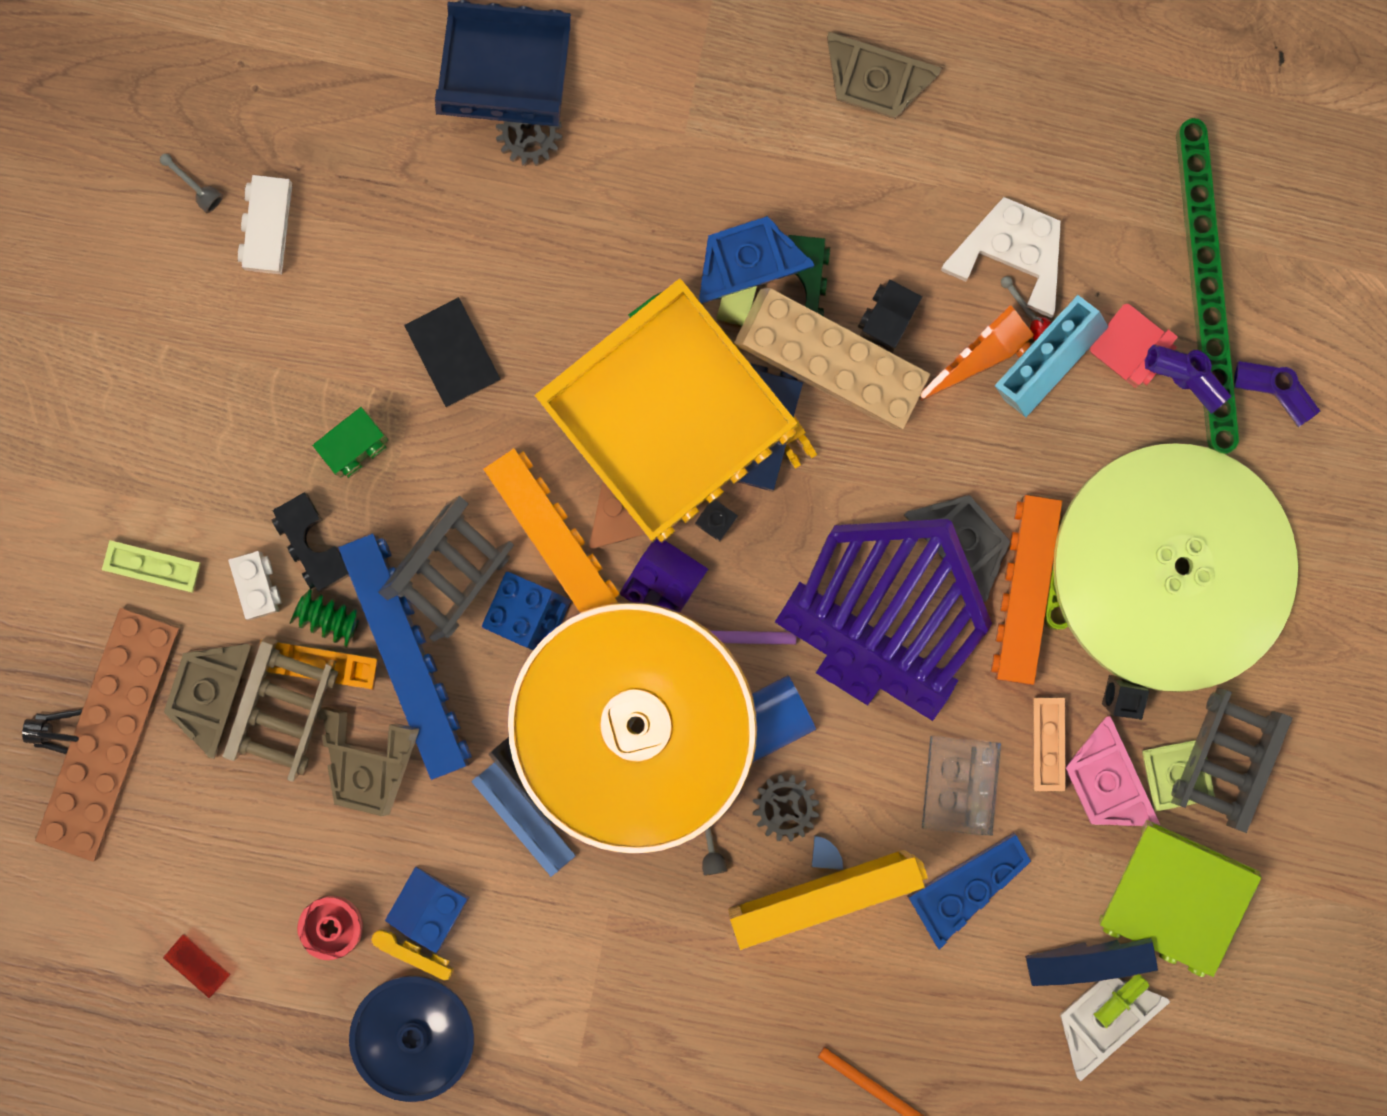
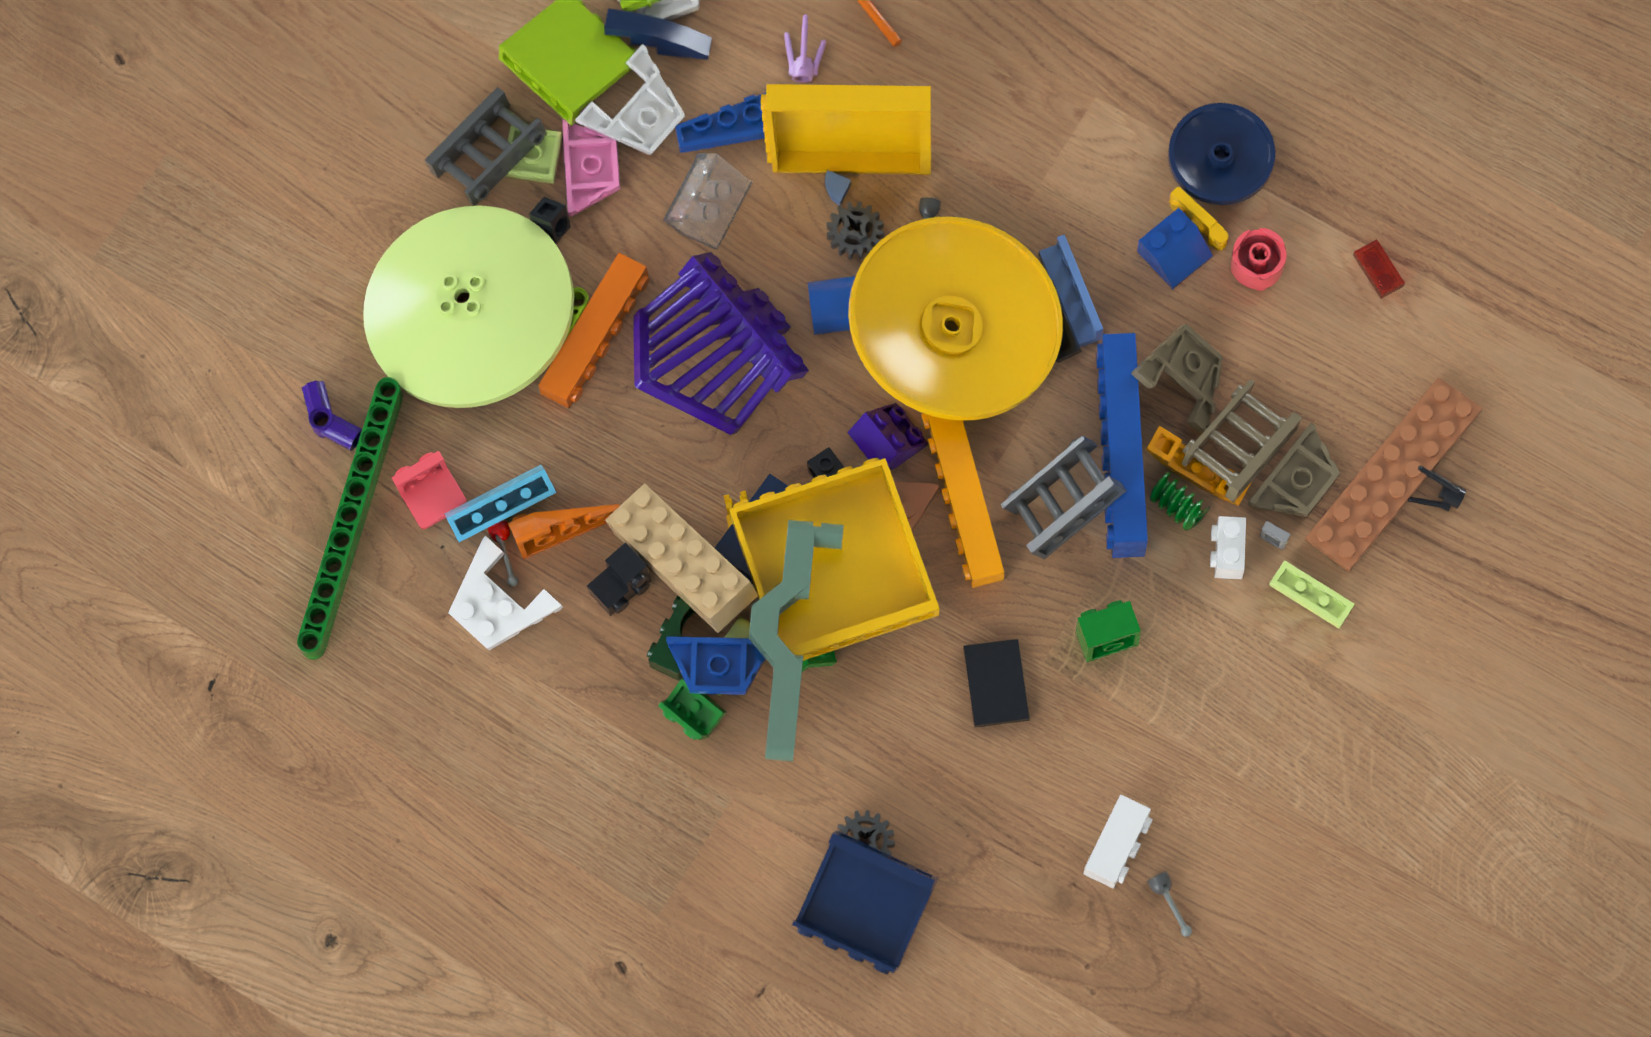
camera: 155 degrees left, 15 degrees down
(211, 617) = (1274, 535): none -> light grey tile
(295, 521) = (1167, 543): black arch -> none
(524, 611) = (1012, 451): blue bracket -> none
(709, 300) = (763, 631): none -> sand green beam
(755, 637) = (845, 376): medium lavender bar -> none
(758, 199) = (694, 712): none -> green bracket
(876, 77) = (553, 784): dark tan wing -> none
(914, 982) = (803, 69): none -> lavender plant
(979, 537) = (621, 397): dark grey wing -> none
(1048, 744) = (625, 209): light nougat plate -> none
(1067, 859) = (647, 115): none -> white wing
(1188, 372) = (392, 446): dark purple piece -> none

